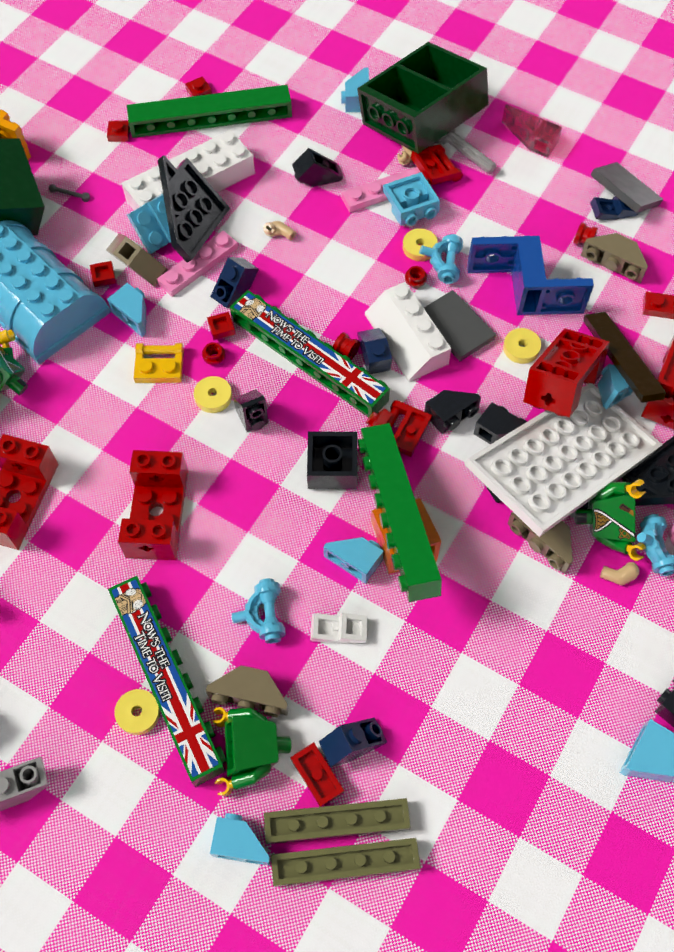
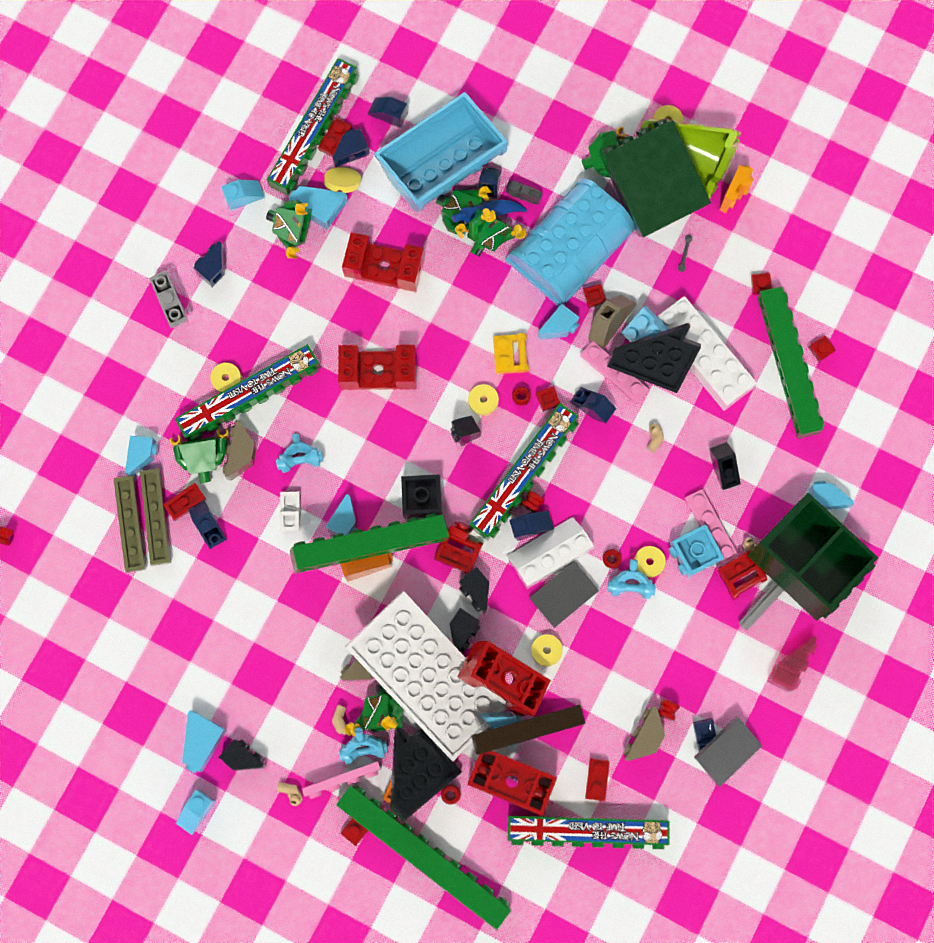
camera: 90 degrees right, 15 degrees up
(531, 289) = (612, 652): blue bracket -> none

